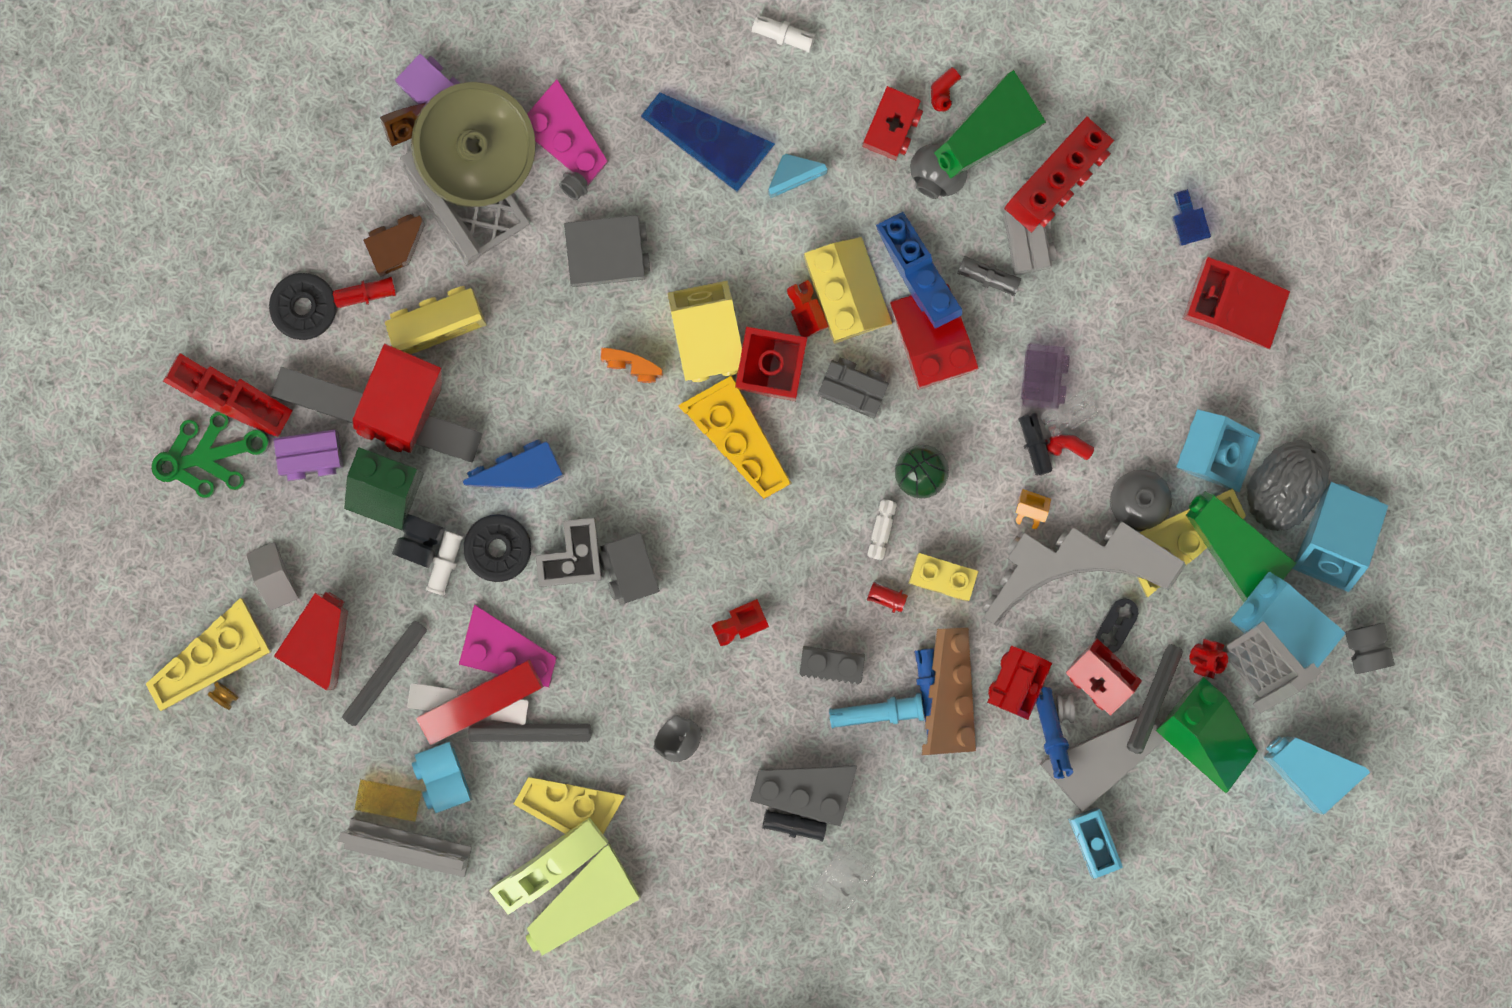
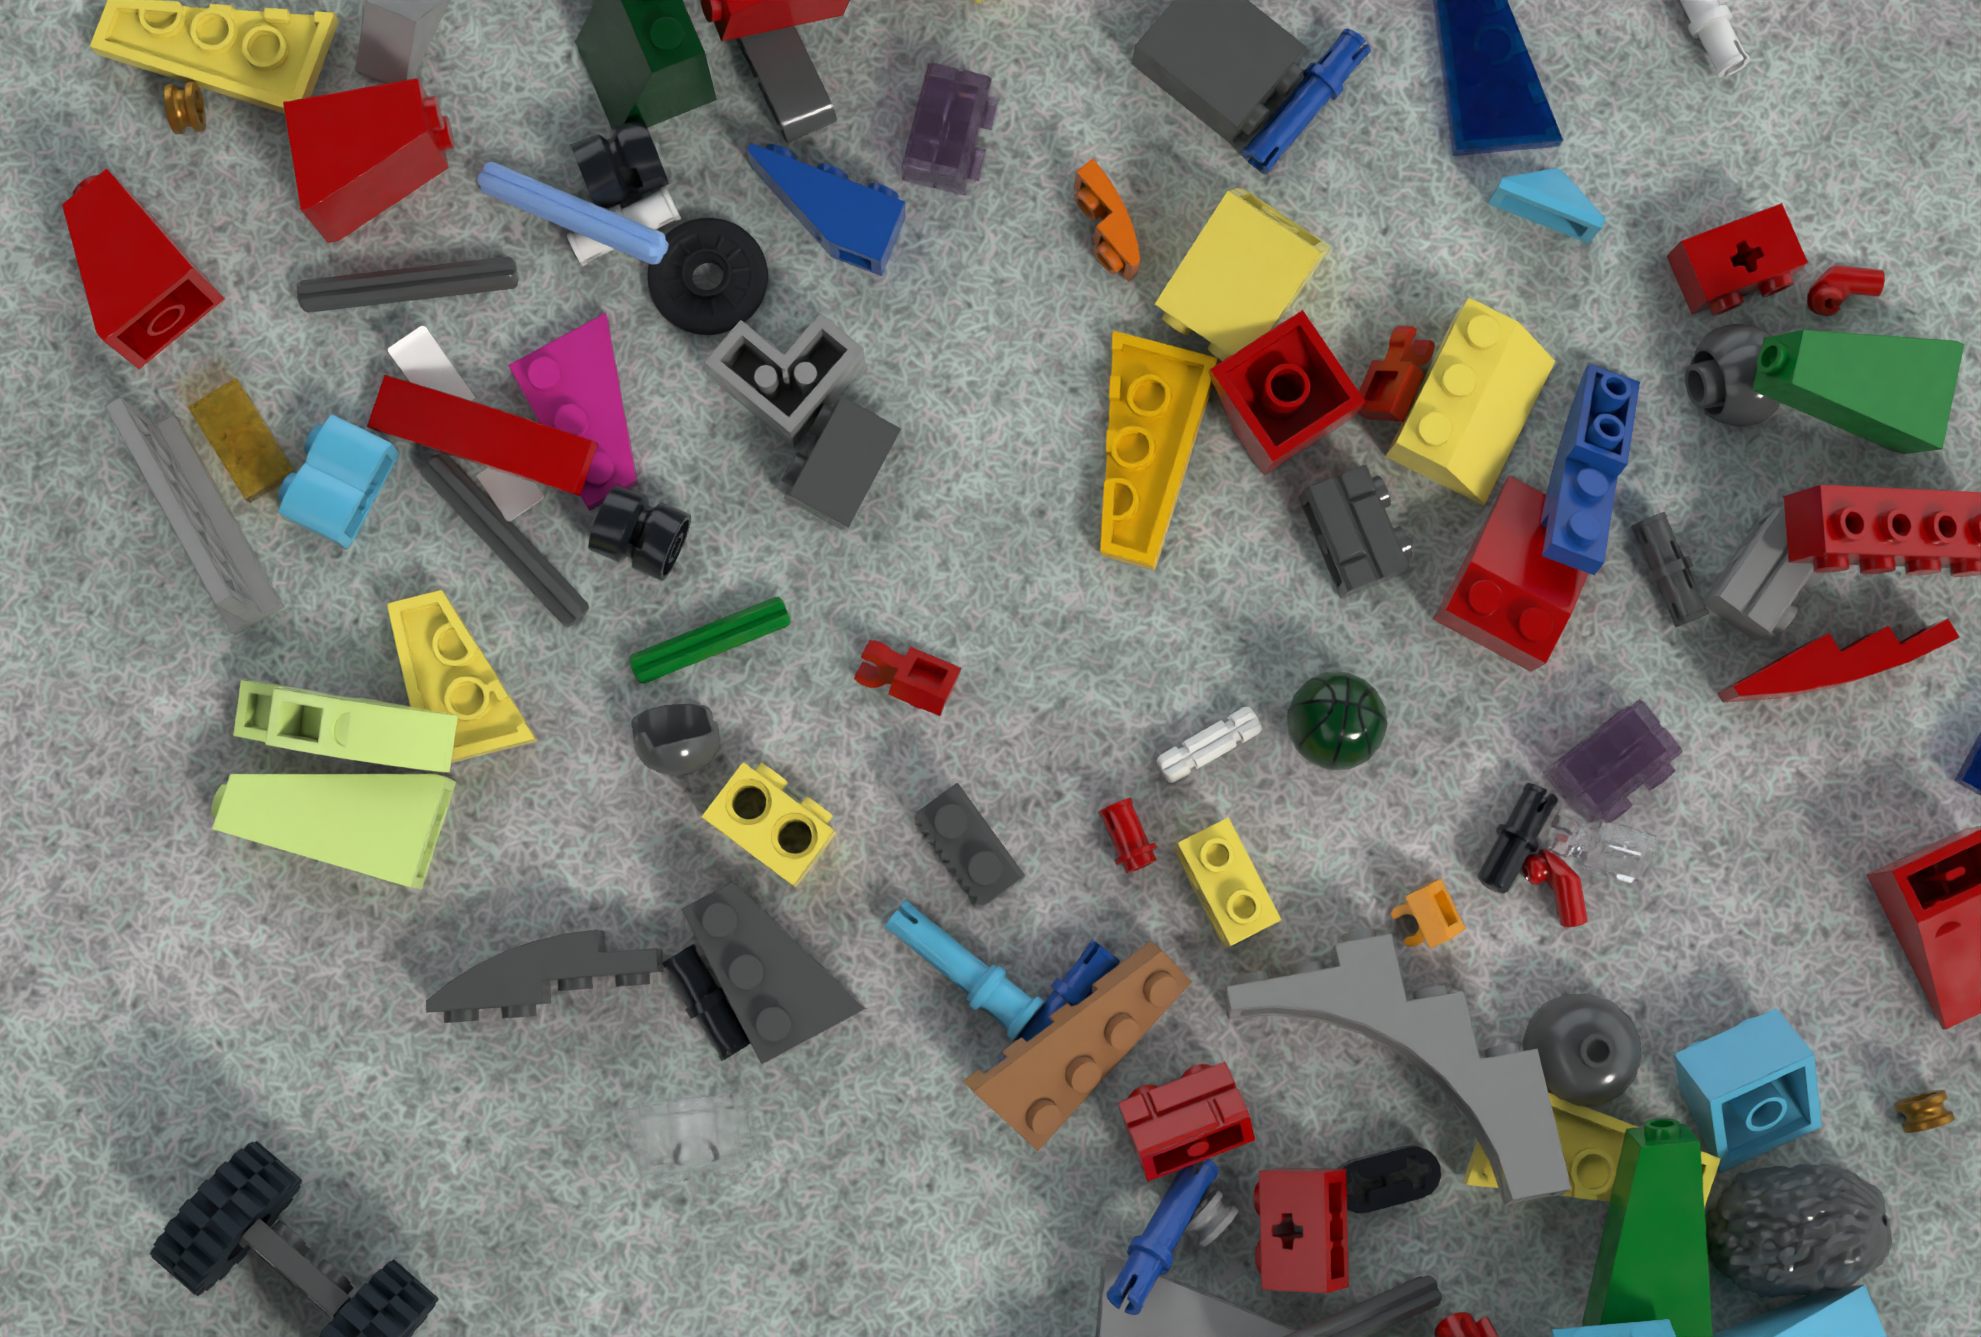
camera: 40 degrees right, 5 degrees down
(279, 778) = (133, 271): none -> red slope
(421, 579) = (573, 213): none -> light blue axle
(530, 392) = (948, 129): none -> clear purple brick
(570, 681) = (622, 524): none -> black wheel
(649, 688) = (709, 640): none -> green axle
(657, 228) = (1319, 85): none -> blue pin
(715, 890) = (523, 974): none -> dark grey slope
(749, 741) = (763, 833): none -> light yellow brick
(1084, 256) = (1824, 666): none -> red slope
(1292, 390) = (1924, 1111): none -> pearl gold bush

